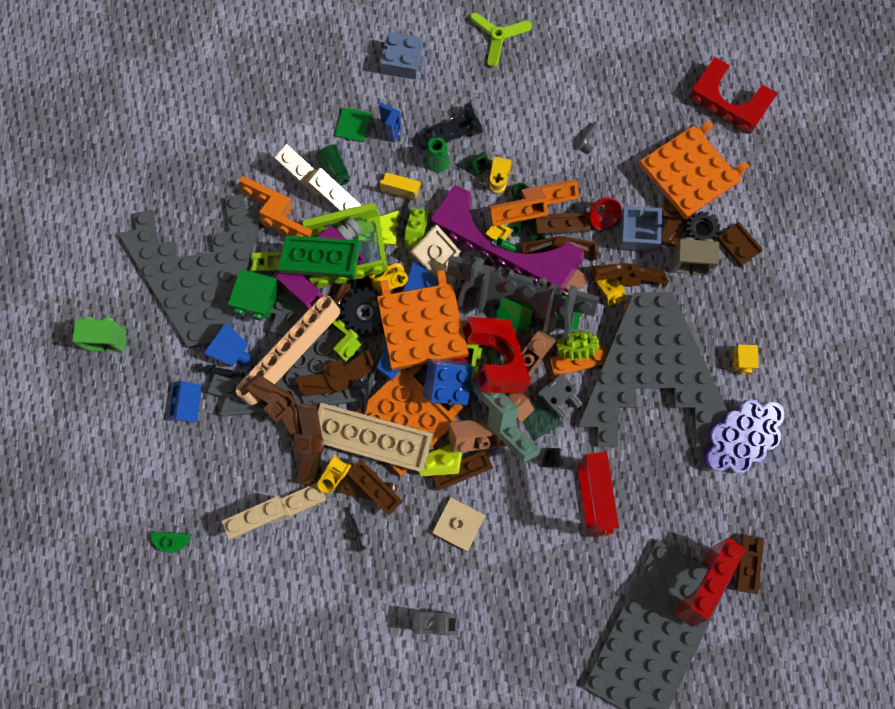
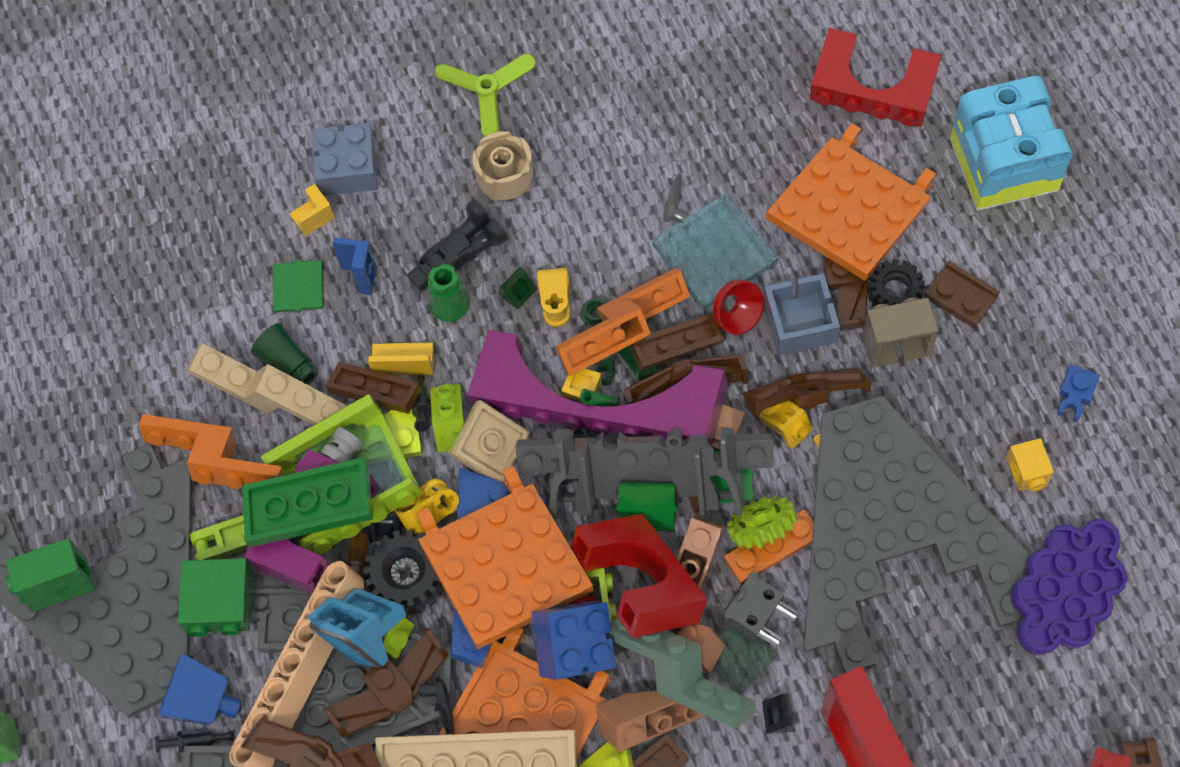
camera: 15 degrees left, 10 degrees down
(164, 254) = (49, 575): none -> green piece
(328, 336) = (357, 625): none -> dark azure piece
(374, 83) = (313, 213): none -> yellow panel
(384, 201) = (385, 389): none -> reddish brown plate
(493, 86) = (503, 166): none -> tan brick
(602, 174) = (714, 249): none -> clear light blue plate
(789, 321) = (1078, 389): none -> blue plate
(800, 160) = (1009, 143): none -> medium azure piece

